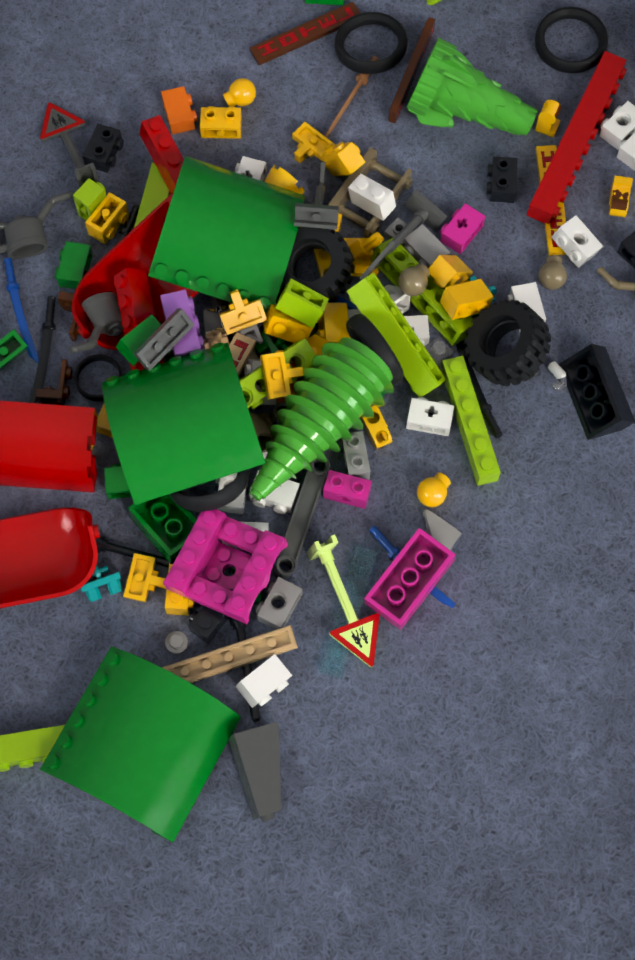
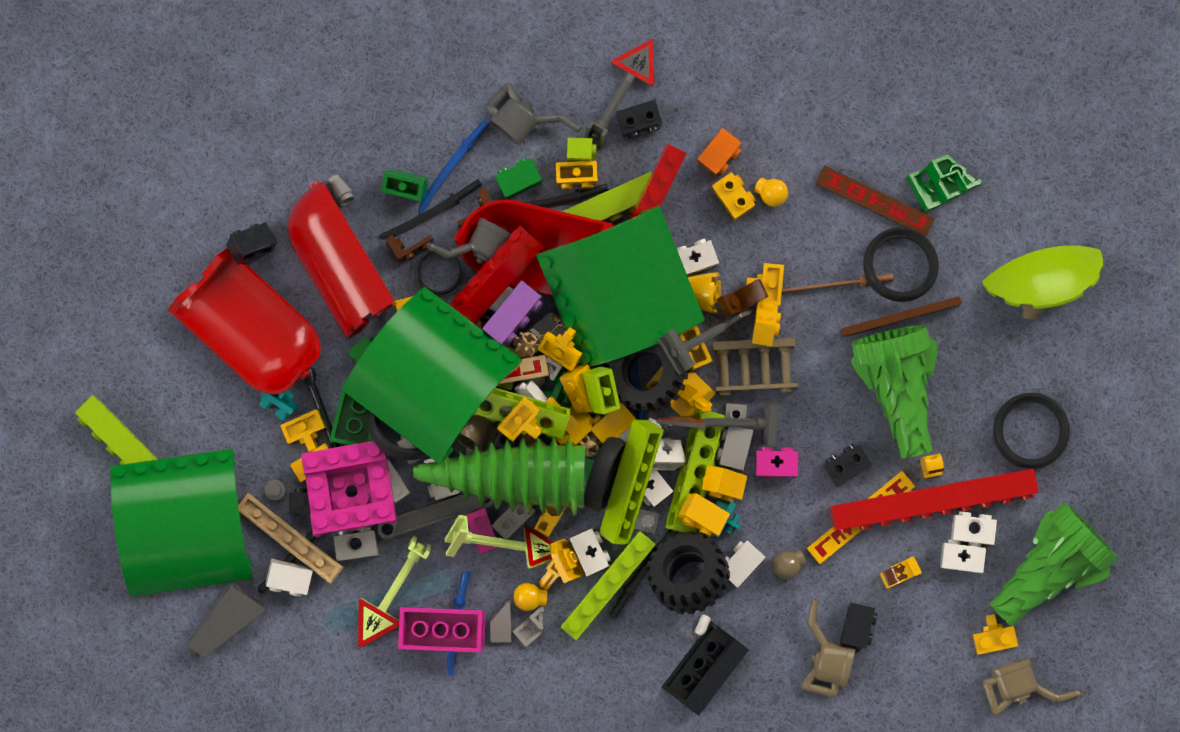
camera: 60 degrees right, 15 degrees up
(136, 337) = (476, 294): green brick -> none
(163, 339) = (483, 313): dark grey plate -> none
(309, 162) = (742, 298): none -> reddish brown bracket
(338, 494) = (535, 545): none -> yellowish green piece
(372, 197) = (744, 374): white brick -> none
(414, 280) = (688, 462): dark tan piece -> none
(425, 446) = (564, 564): none -> yellow piece
(461, 510) = (530, 628): none -> light grey slope
(577, 241) = (830, 577): white brick -> none

